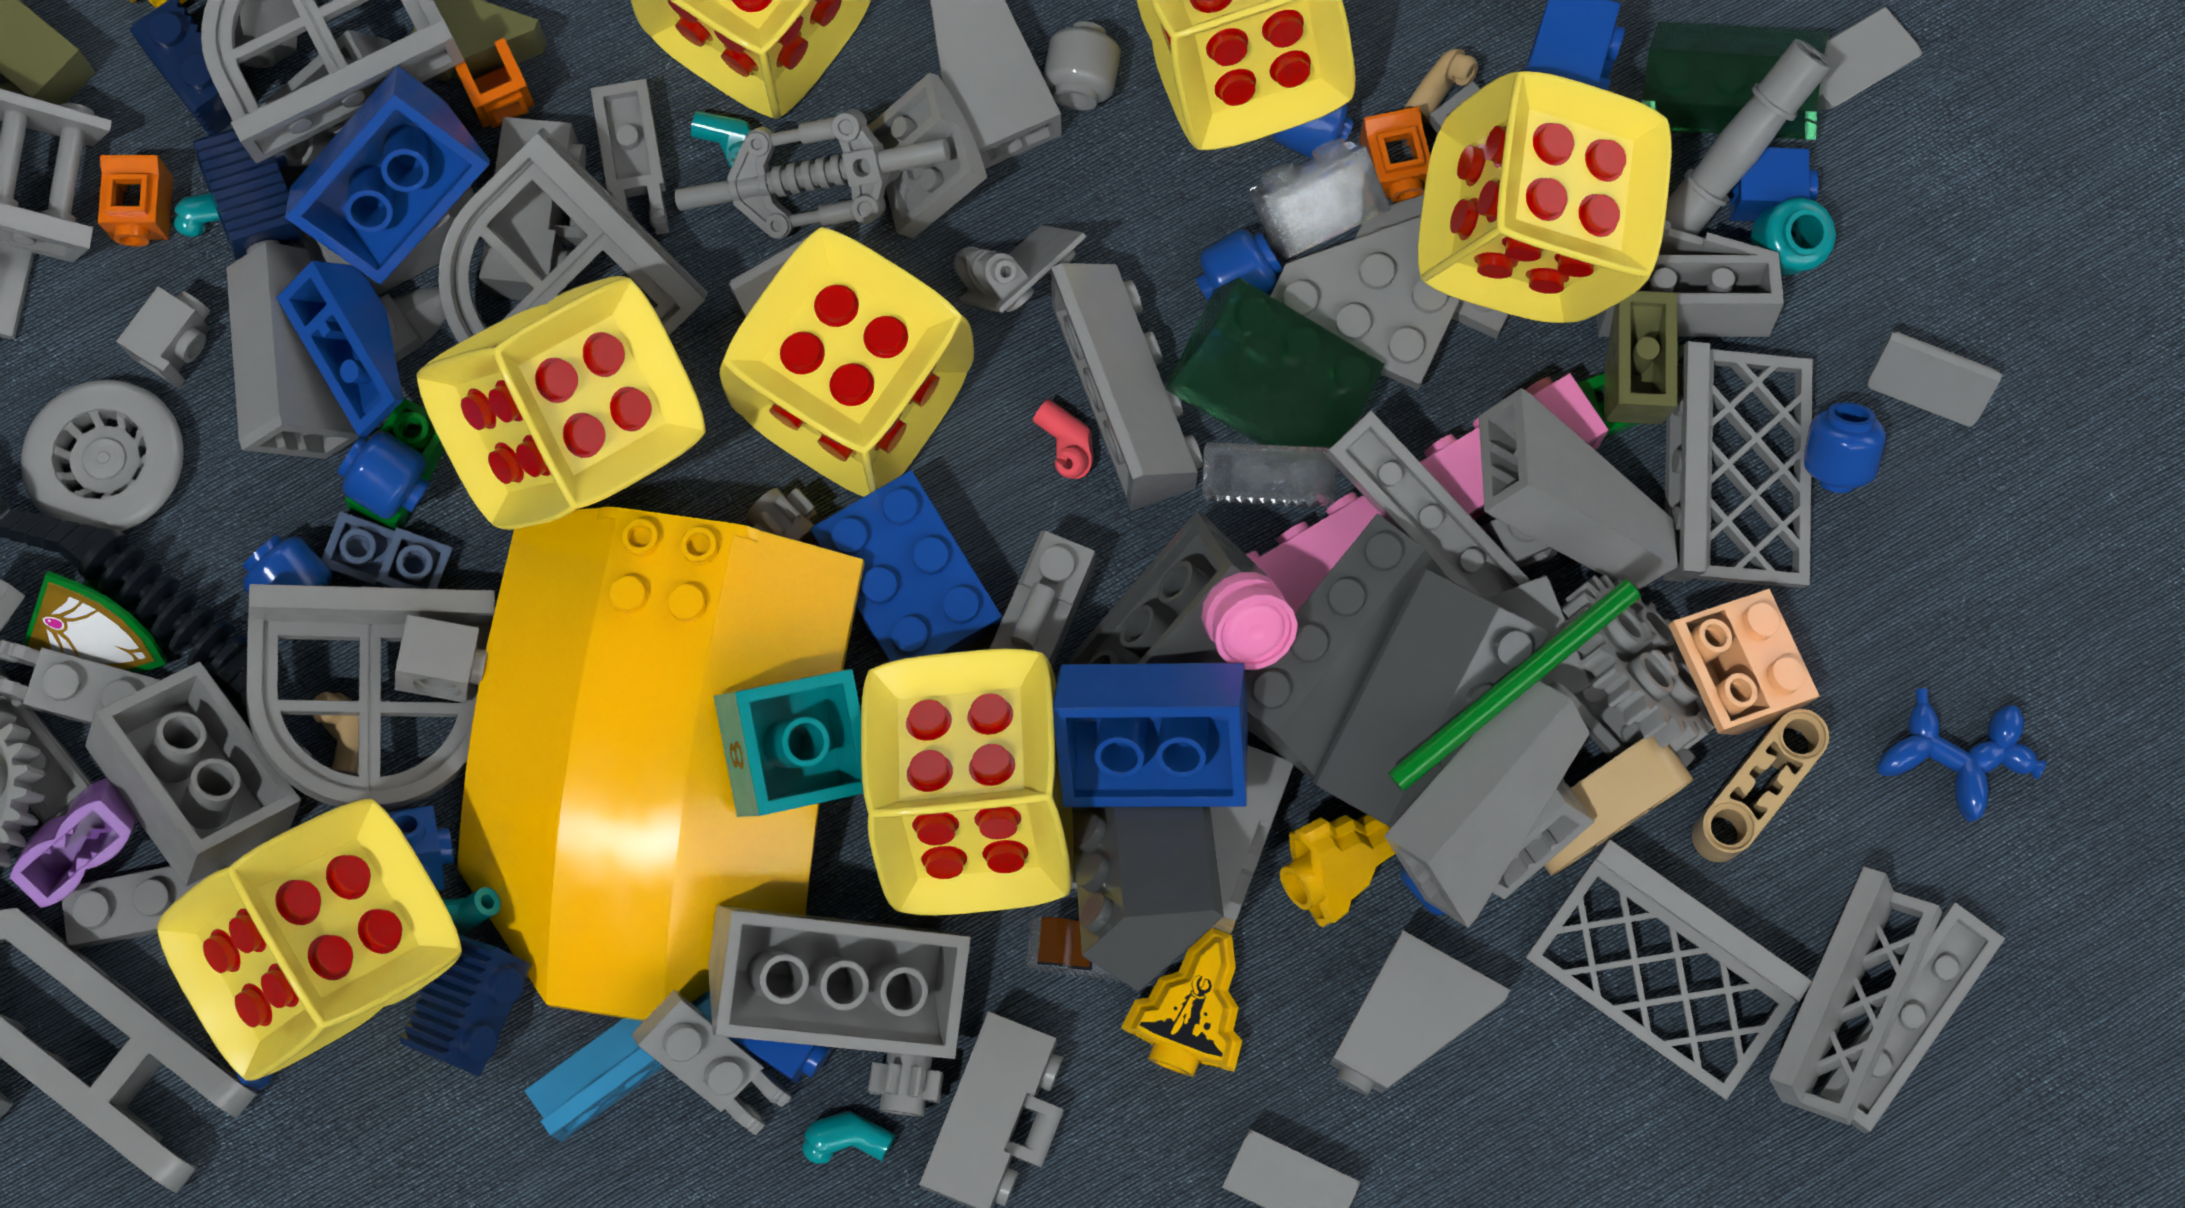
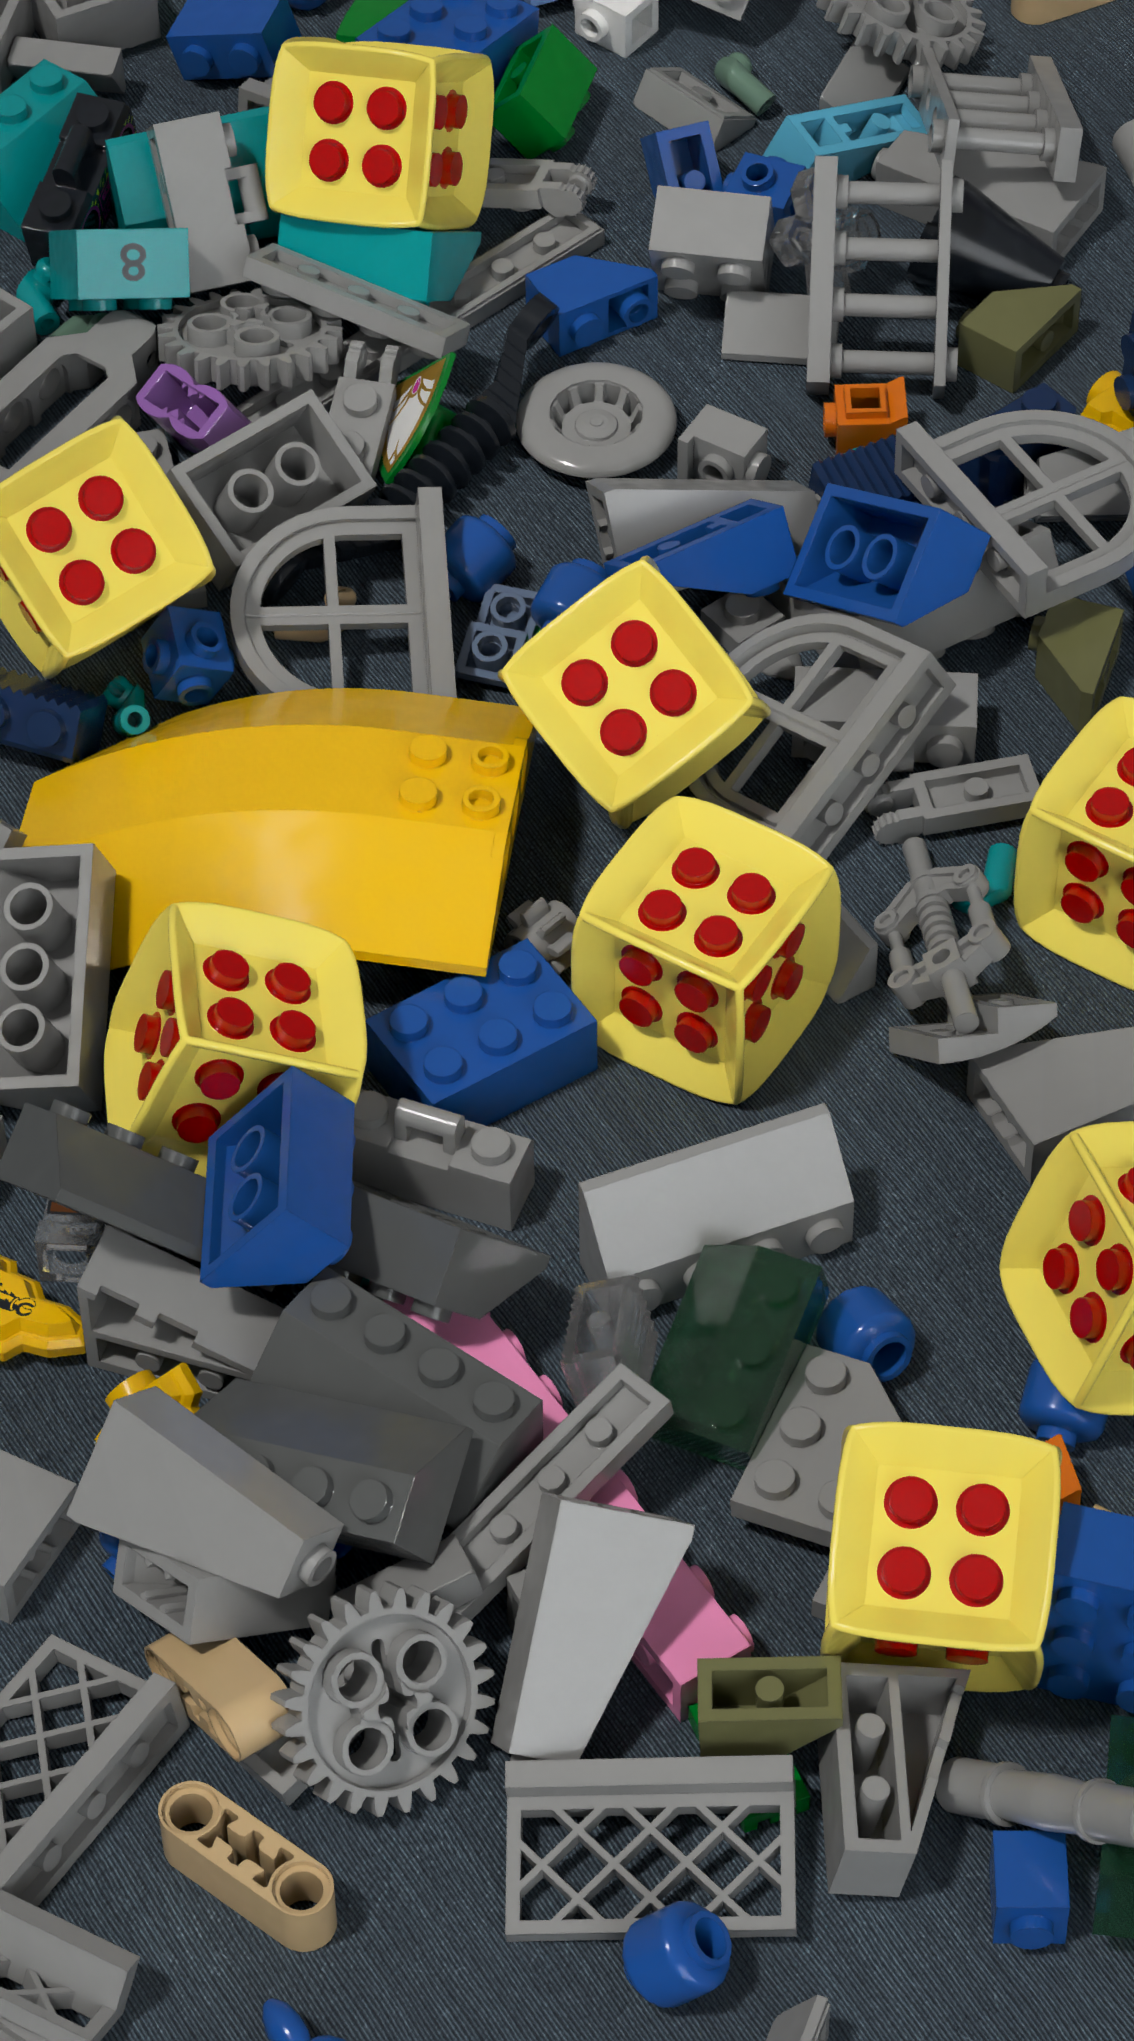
camera: 90 degrees right, 25 degrees down
(439, 659) = (380, 648): light grey brick -> none
(498, 92) = (1014, 679): orange window -> none
(792, 742) = (270, 864): teal brick -> none
(1006, 280) = (846, 1093): light grey hinge -> none
(1249, 620) = (402, 1259): bright pink wheel -> none
(1318, 197) = (947, 1383): clear brick -> none
(1514, 685) = (329, 1503): green piece -> none
(1744, 663) = (386, 1816): light nougat slope -> none
(1798, 231) = (952, 1898): teal head -> none

